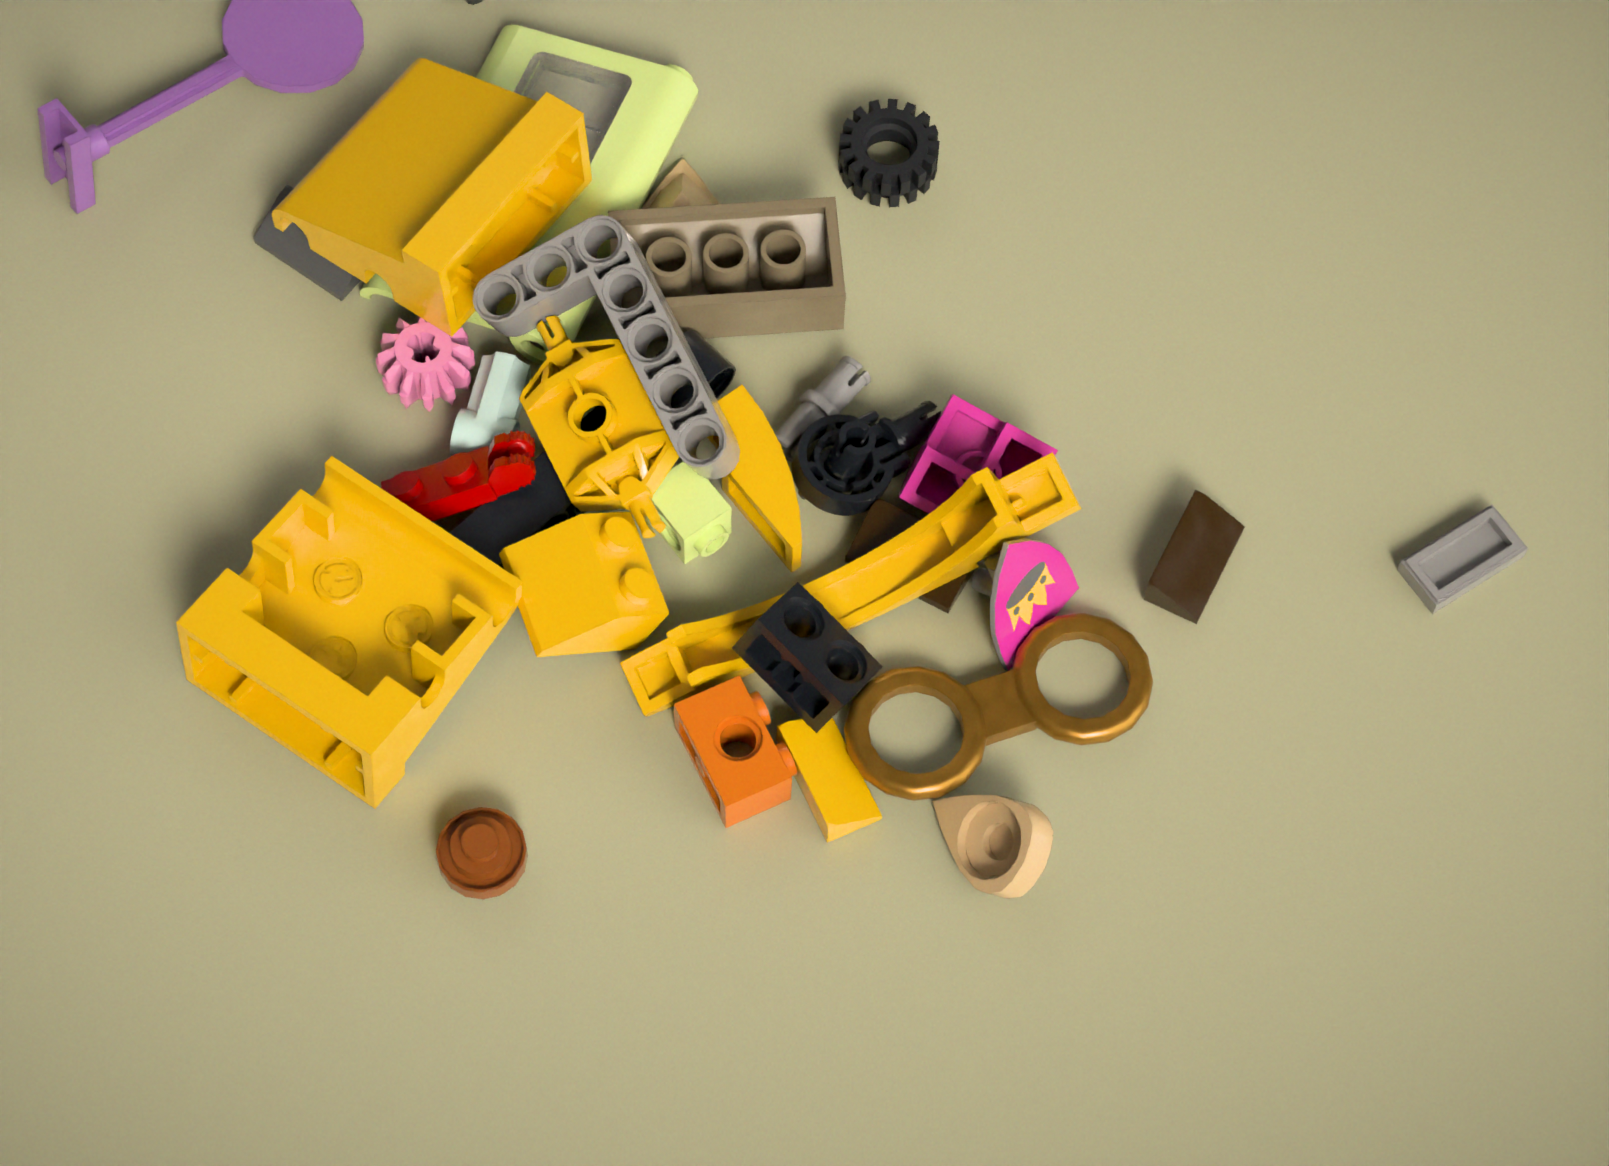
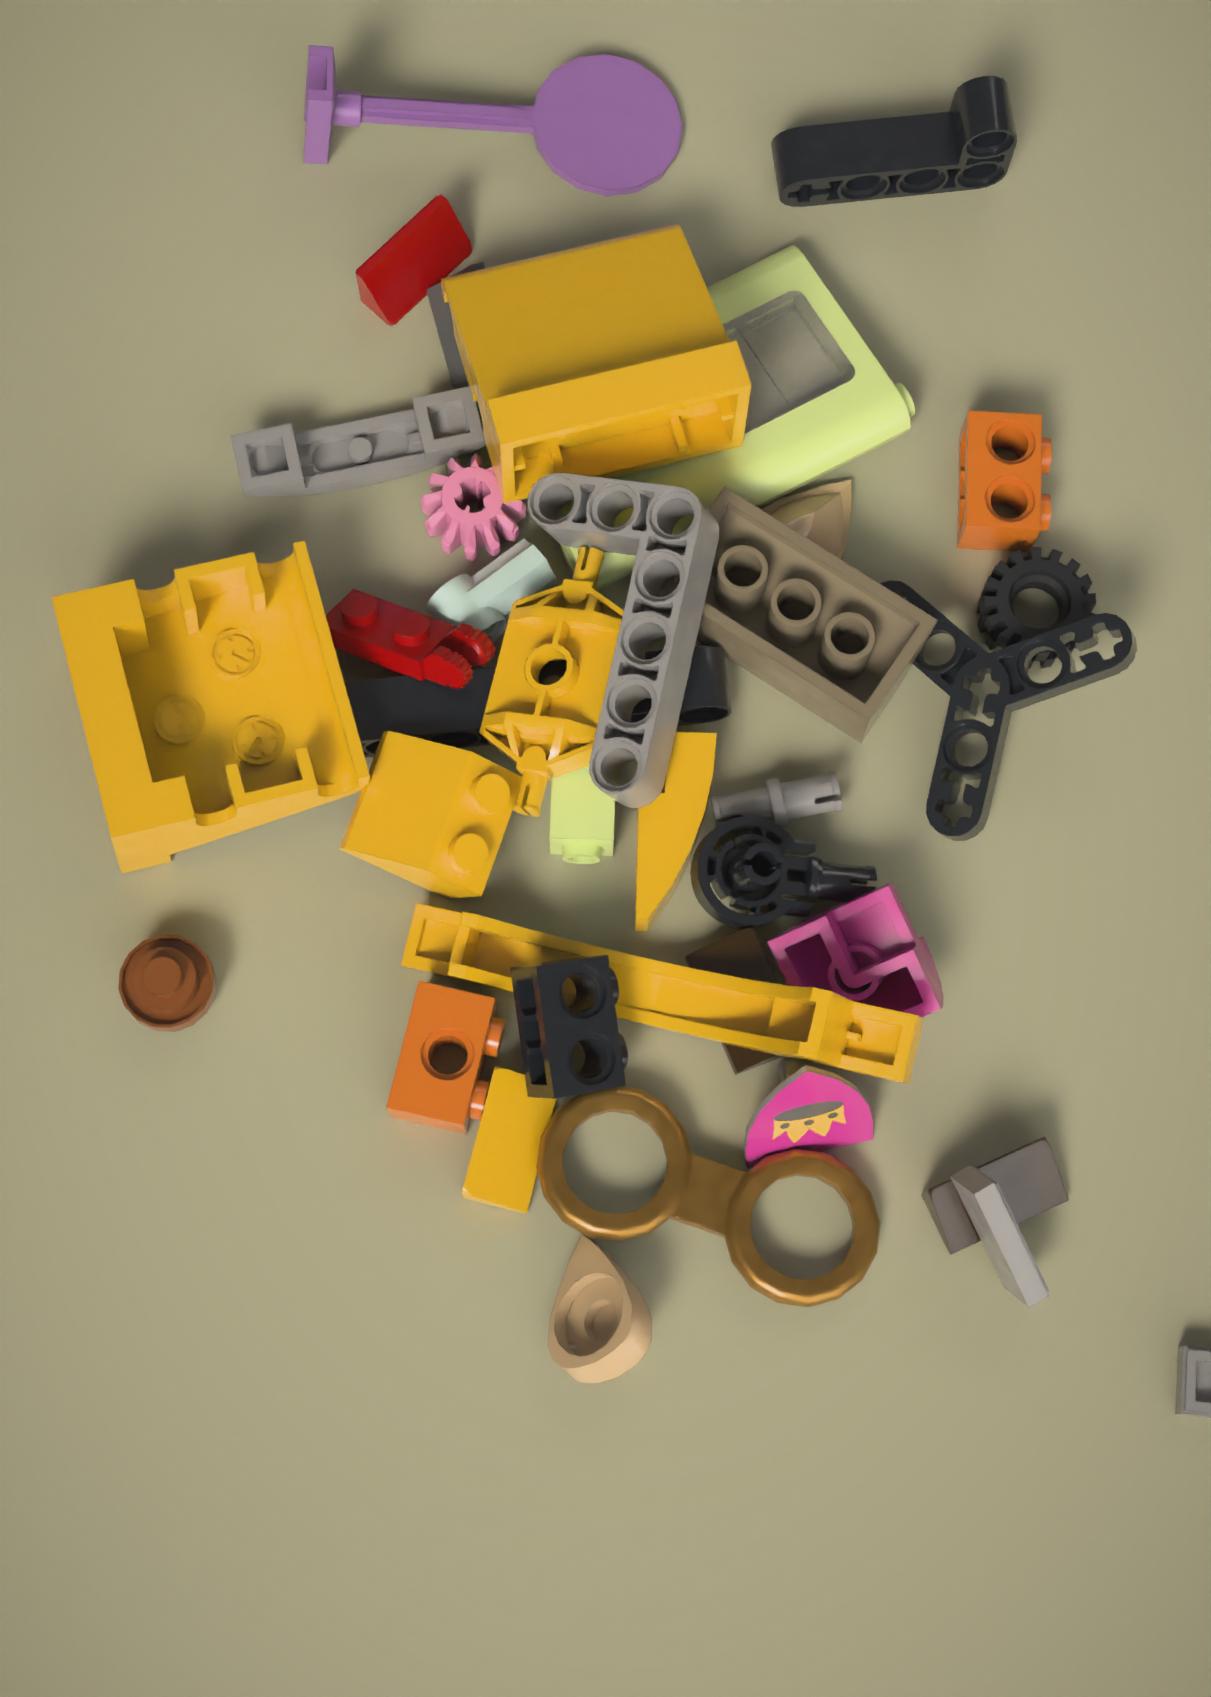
camera: 40 degrees right, 10 degrees up
(229, 224) = (413, 261): none -> red slope
(306, 380) = (360, 451): none -> light grey slope
(782, 89) = (992, 480): none -> orange brick
(928, 209) = (1010, 672): none -> black piece
(1222, 573) = (1000, 1235): none -> light grey tile

